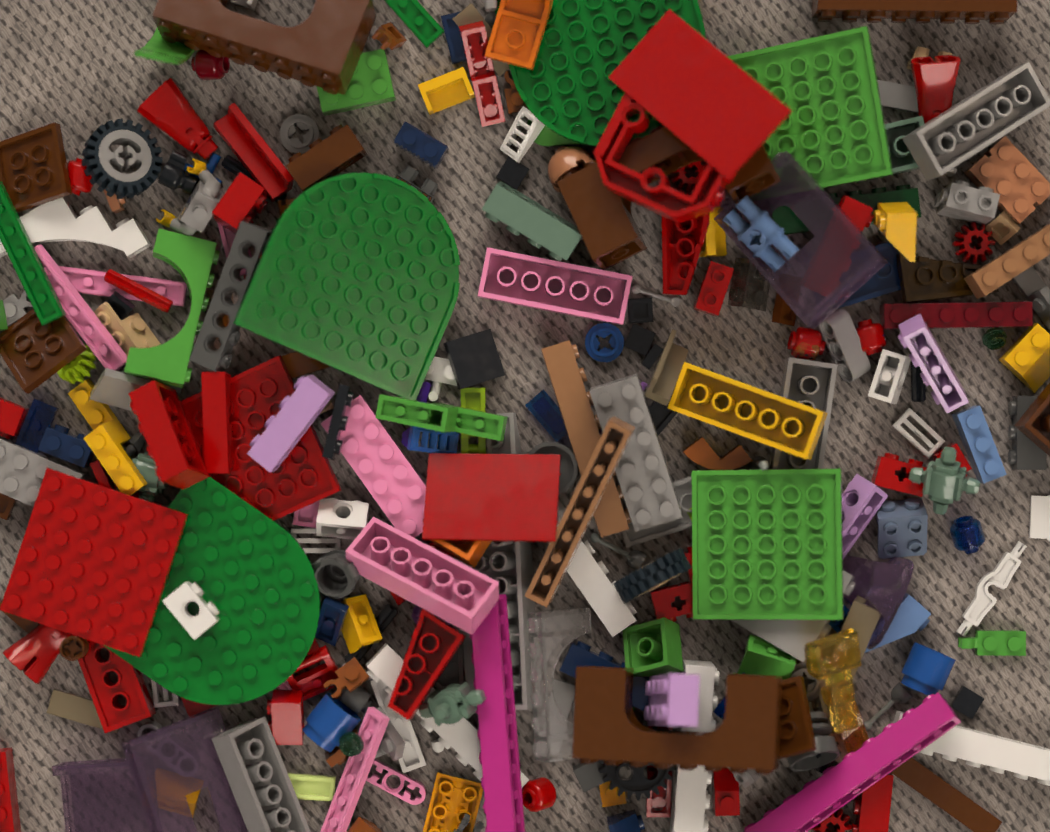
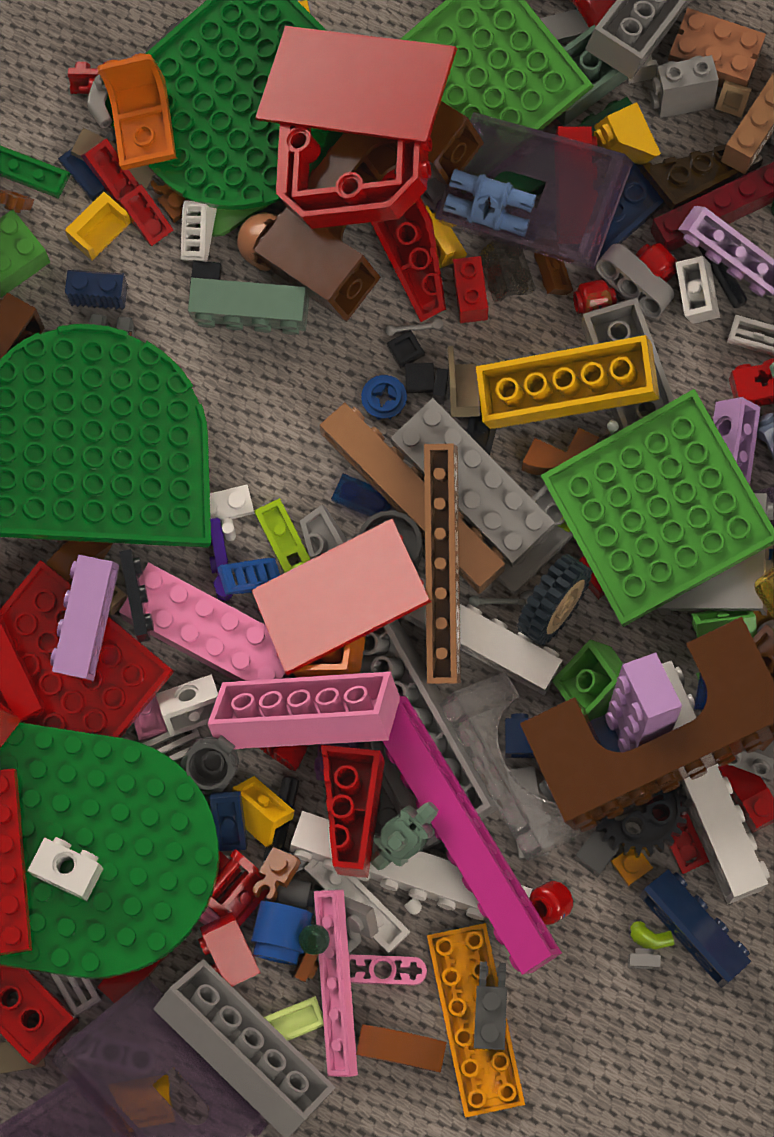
camera: 20 degrees left, 15 degrees down
(441, 417) = (246, 543): bright green bracket -> none
(474, 359) = (254, 475): black tile -> none
(555, 286) = (303, 361): bright pink brick -> none
(663, 597) = (579, 626): red brick -> none
(965, 240) = (720, 133): red gear -> none

